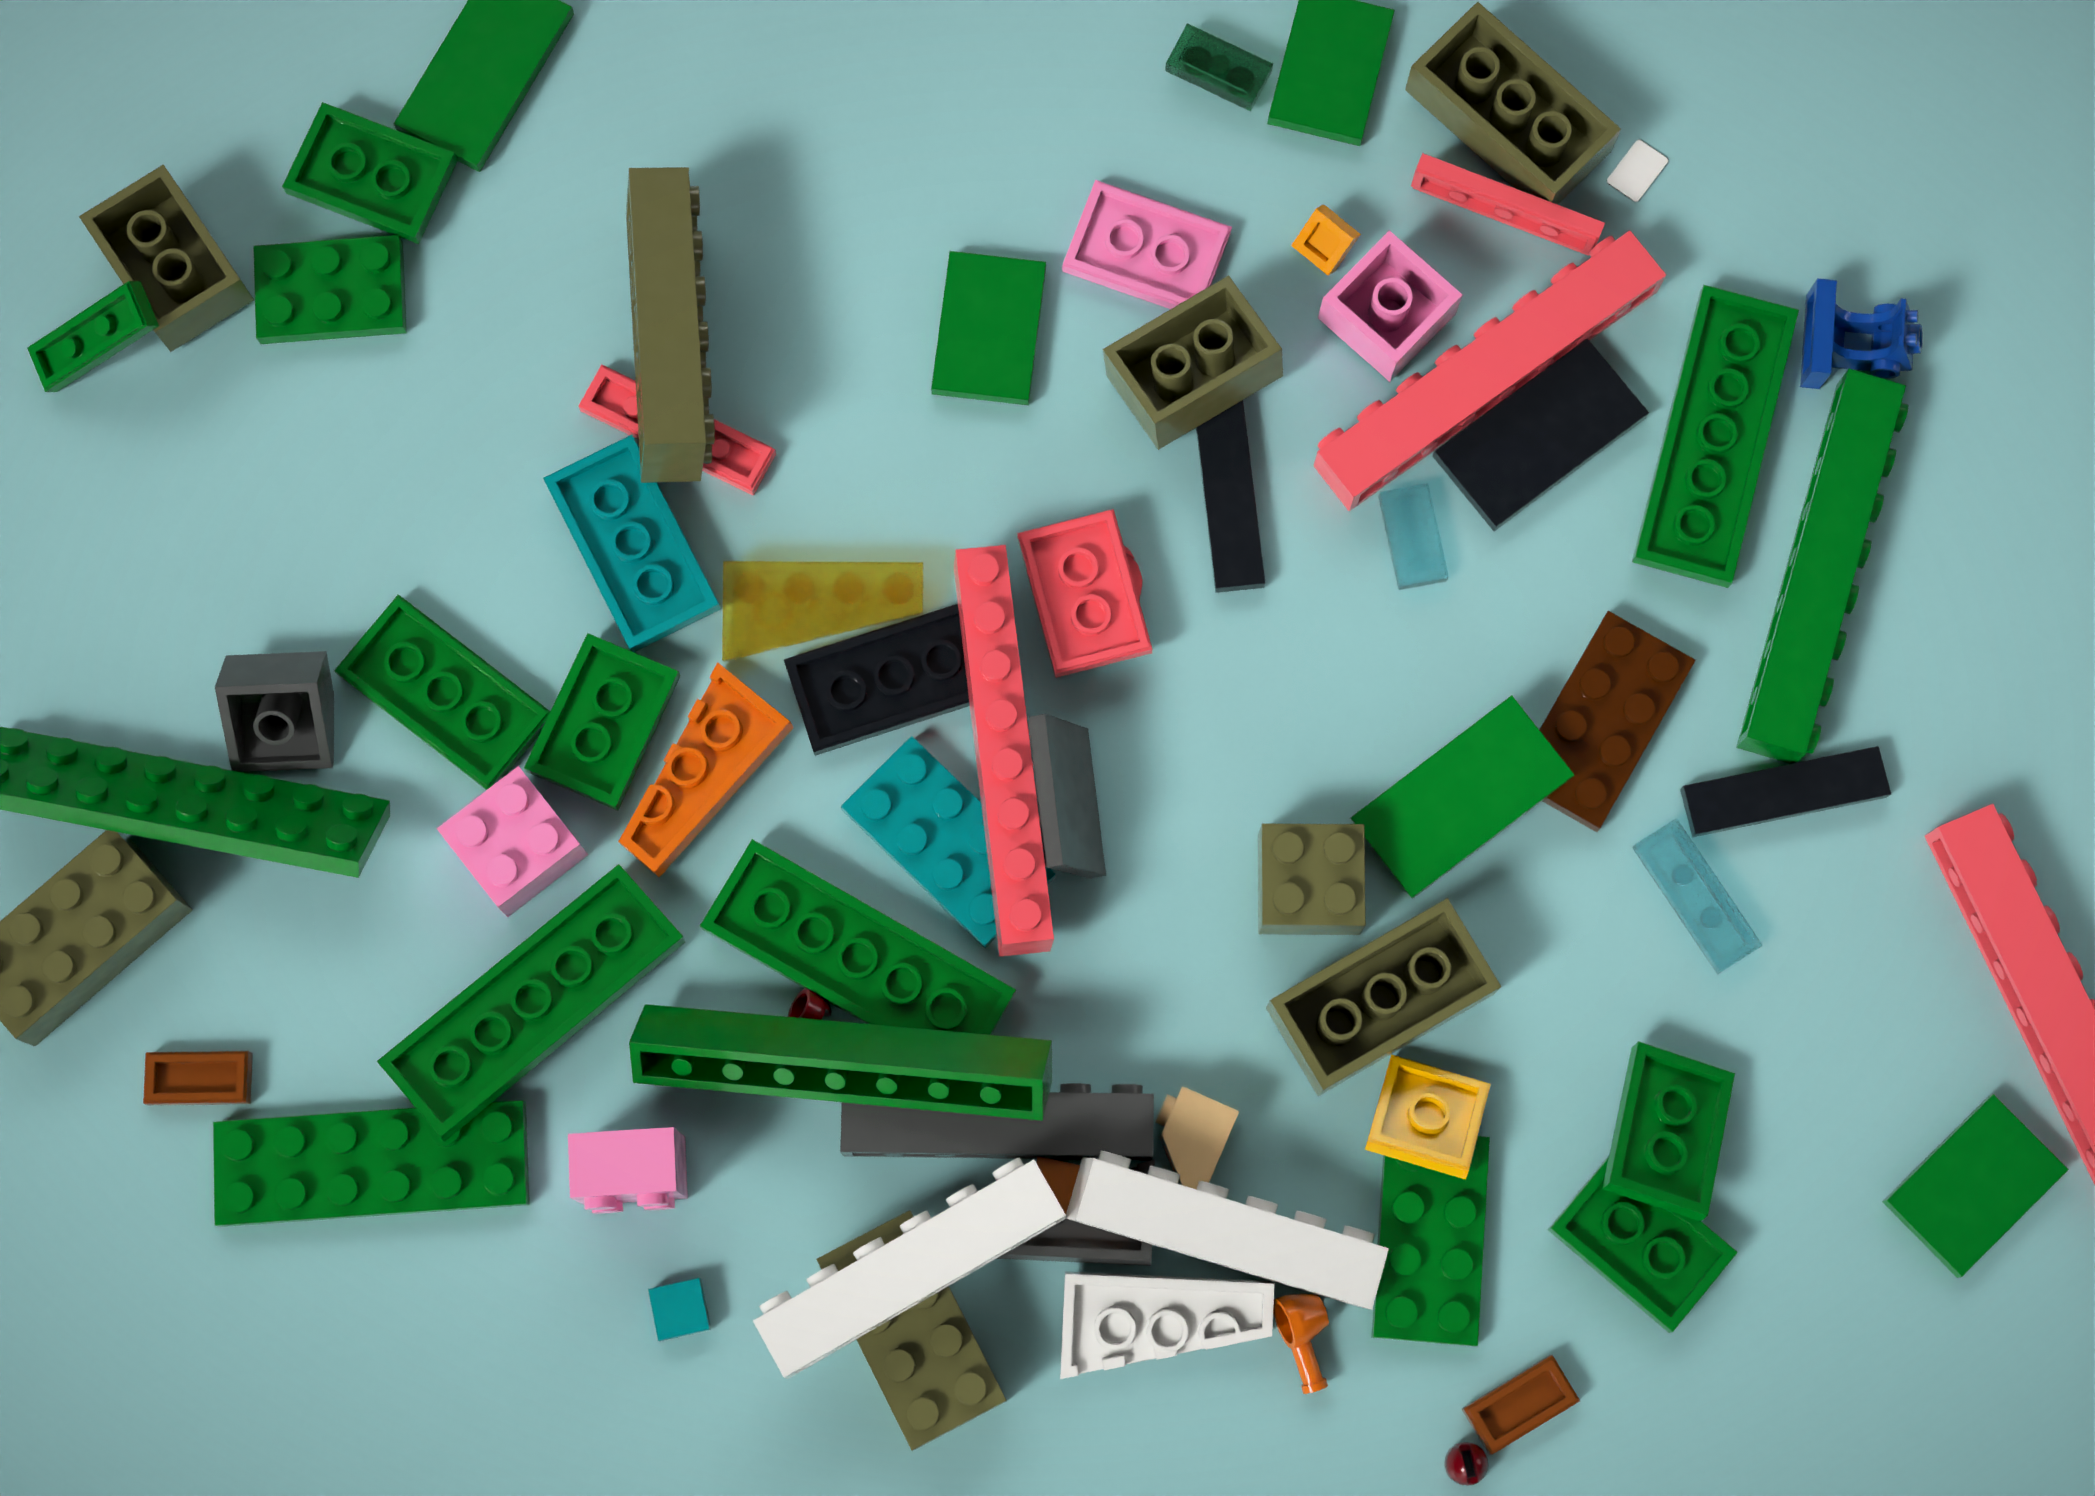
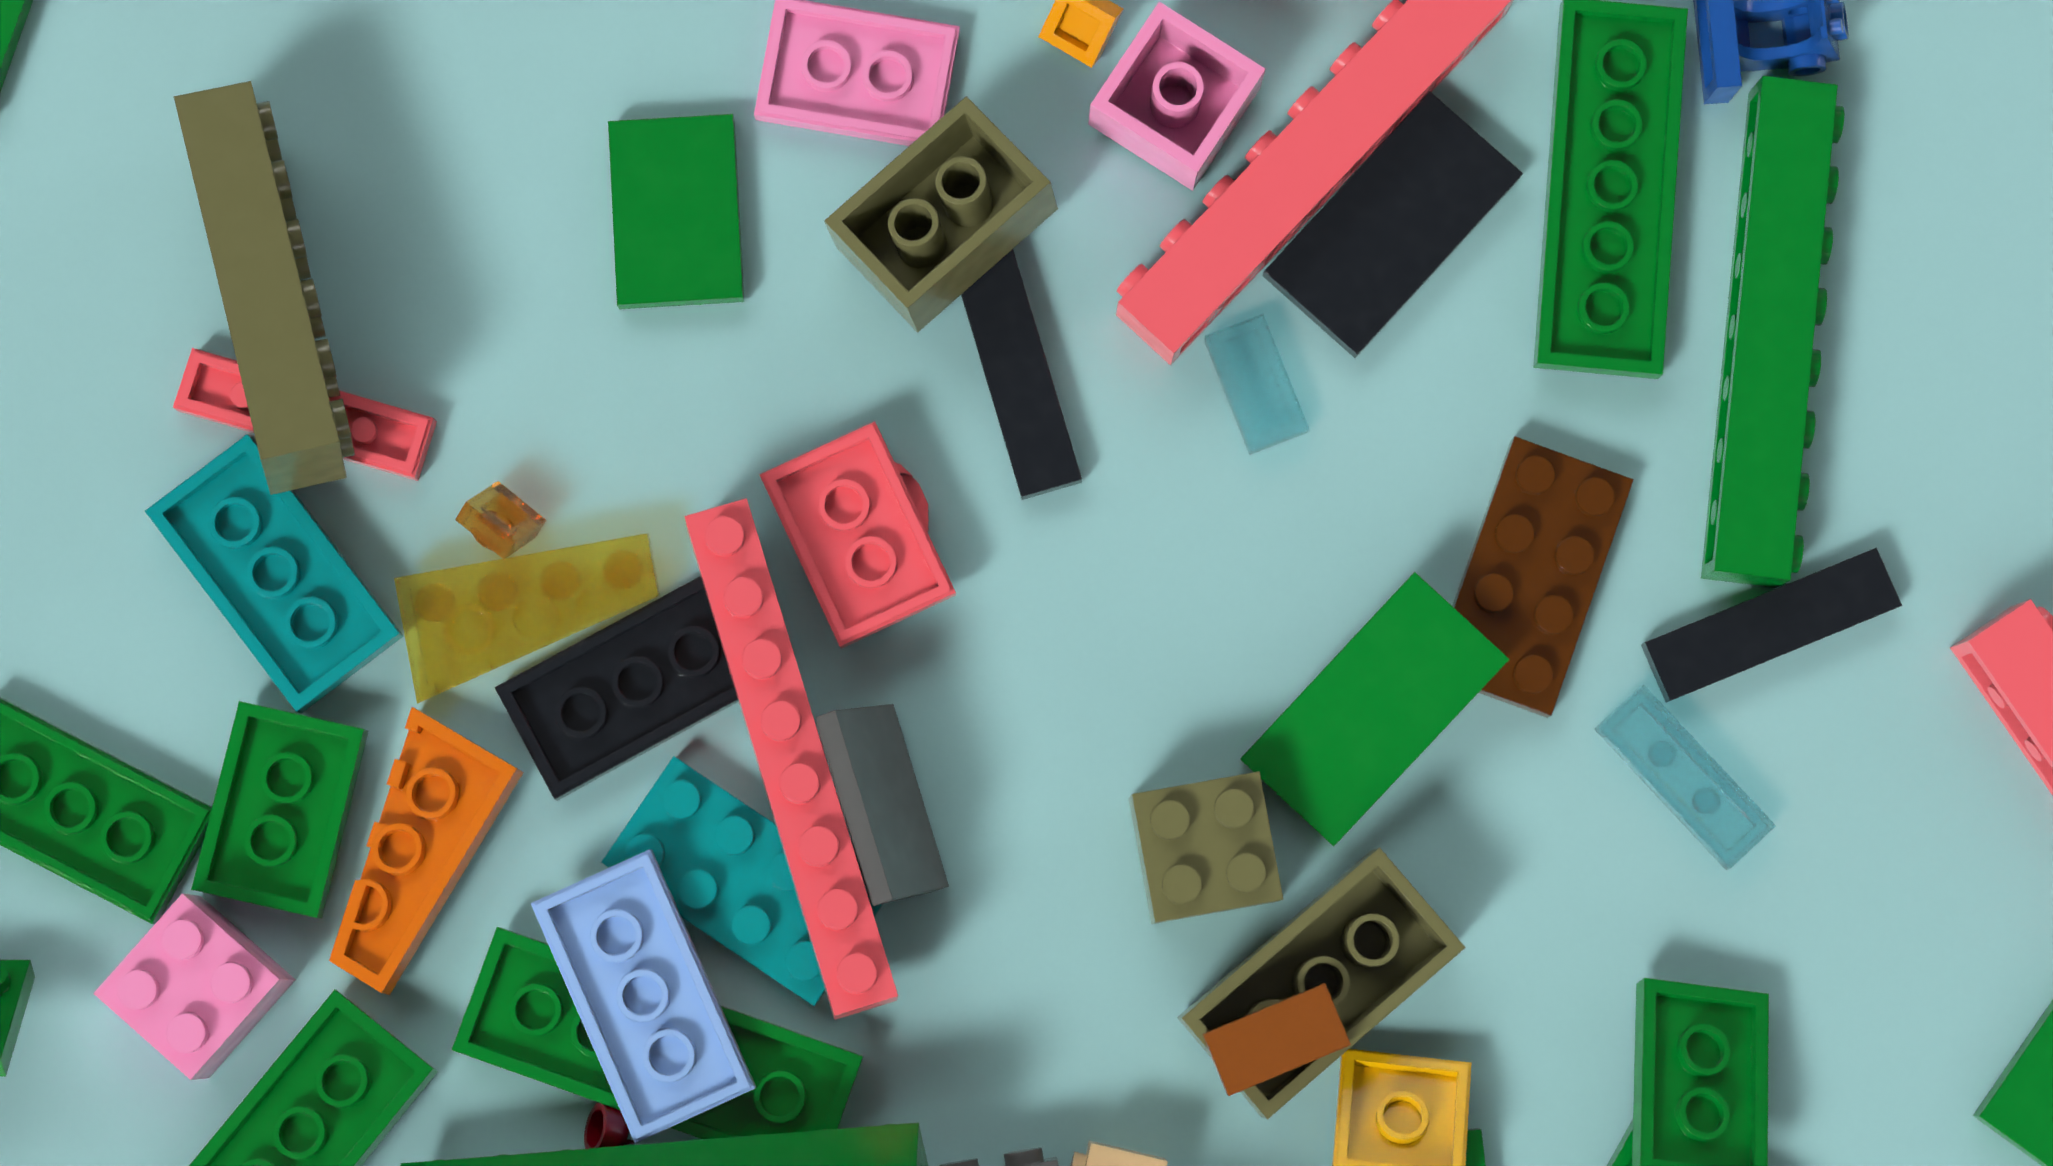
camera: 15 degrees left, 5 degrees up
(811, 533) = (500, 520): none -> clear orange plate
(855, 911) = (643, 996): none -> light blue tile
(1341, 1027) = (1276, 1039): none -> dark orange tile

